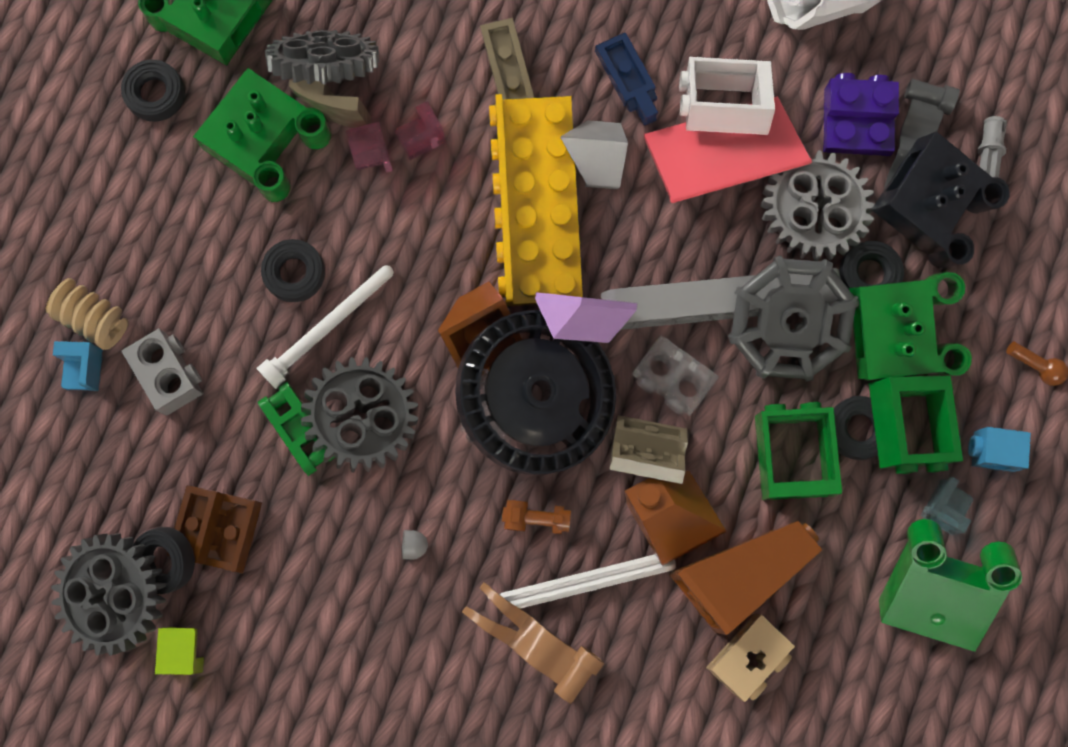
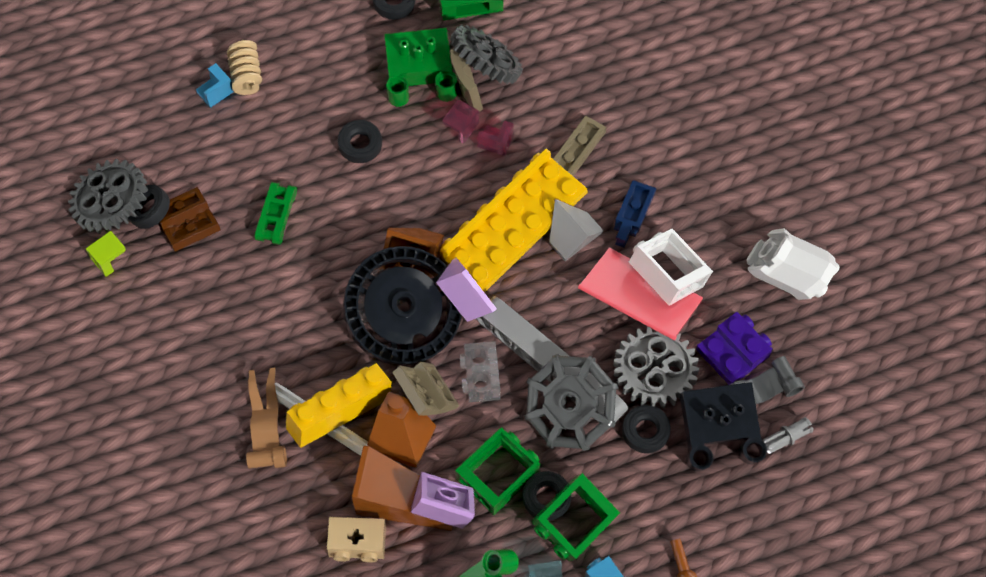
camera: 50 degrees right, 15 degrees down
(157, 376) = (242, 125): light grey brick -> none
(276, 369) = (297, 176): white piece -> none
(346, 386) = (300, 251): dark grey gear -> none
(413, 544) = (264, 318): light grey hinge -> none
(517, 516) = (327, 357): dark orange bar -> none
(592, 560) = (337, 405): none -> yellow brick
(803, 538) = (444, 501): none -> lavender slope
(898, 332) = (622, 462): green piece -> none

